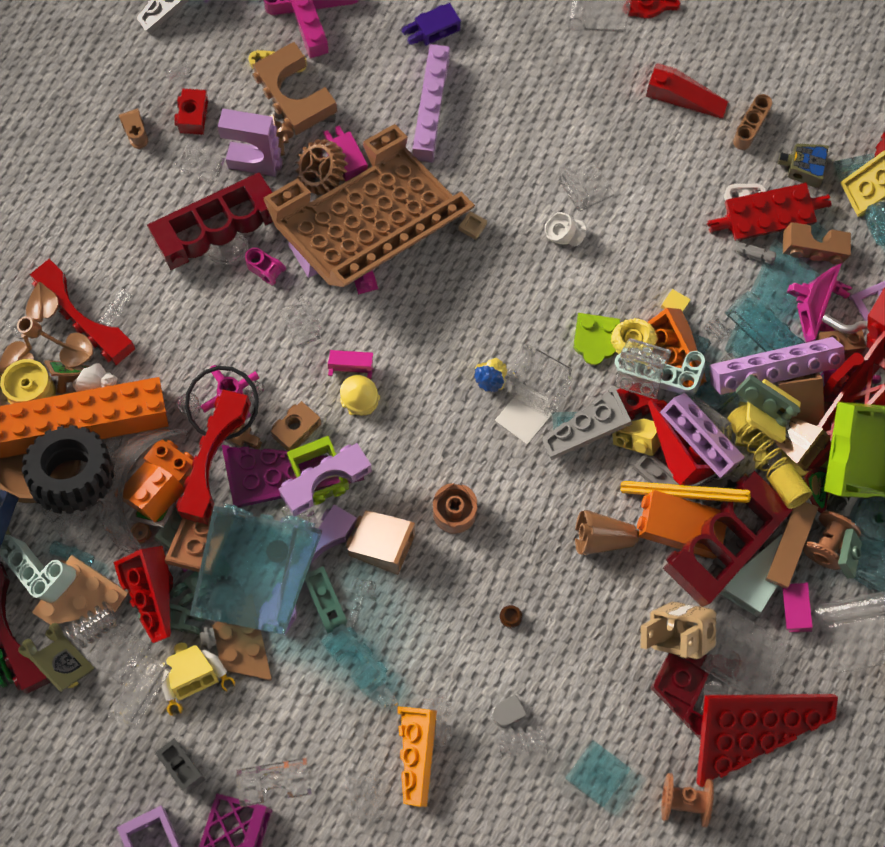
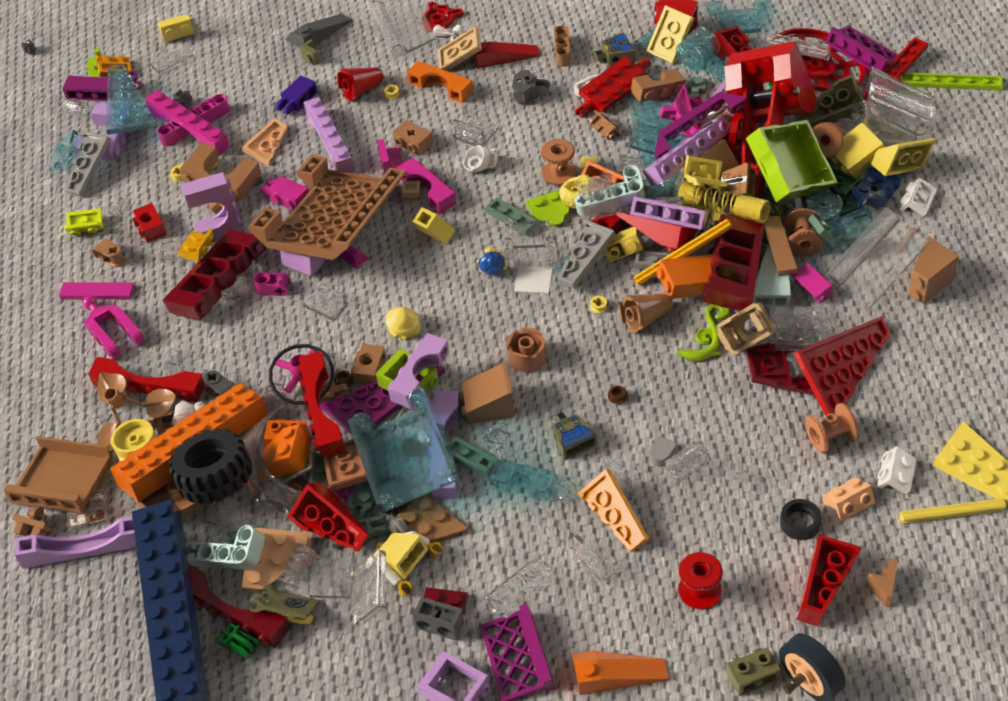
camera: 25 degrees left, 20 degrees down
(79, 203) = (104, 313): none -> dark pink piece
(98, 168) = (99, 290): none -> dark pink tile
(132, 70) = (84, 221): none -> neon yellow bracket
(143, 366) = (217, 383): none -> dark grey piece
(202, 744) = (449, 597): none -> dark red plate
(214, 175) = (196, 245): none -> yellow bracket
(262, 427) = (343, 377): none -> reddish brown plate
(314, 165) = (277, 193): medium nougat gear -> none
(350, 362) = (381, 306): dark pink hinge -> none
(366, 71) = (266, 142): none -> light nougat wing
(434, 637) = (573, 435): none -> torso
(462, 291) = (433, 226): none -> light yellow slope
(477, 169) = (390, 157): none -> dark pink panel
(493, 253) = (439, 196): none -> dark pink arch
(507, 45) = (358, 81): none -> red cone
(515, 156) = (413, 137): none -> medium nougat brick
(534, 83) = (395, 94): none -> light yellow bush
(550, 323) = (503, 211): none -> sand green plate
(572, 492) = (598, 309): none -> light yellow bush
(580, 75) = (424, 74): none -> orange arch
(597, 774) = (756, 453): clear light blue plate -> none
(637, 21) = (440, 31): none -> white piece
(637, 64) = (459, 49): none -> tan tile
(639, 286) = (558, 154): none -> nougat hose
(642, 596) = (703, 334): none -> lime plant
(676, 158) = (528, 87): none -> dark grey hinge
(724, 254) = (601, 121): none -> medium nougat hinge
(754, 343) = (732, 102): none -> magenta slope
(755, 253) = (621, 110): light grey axle -> none
(767, 400) = (697, 167): sand green plate -> none
(862, 265) = (697, 86): none -> sand green plate

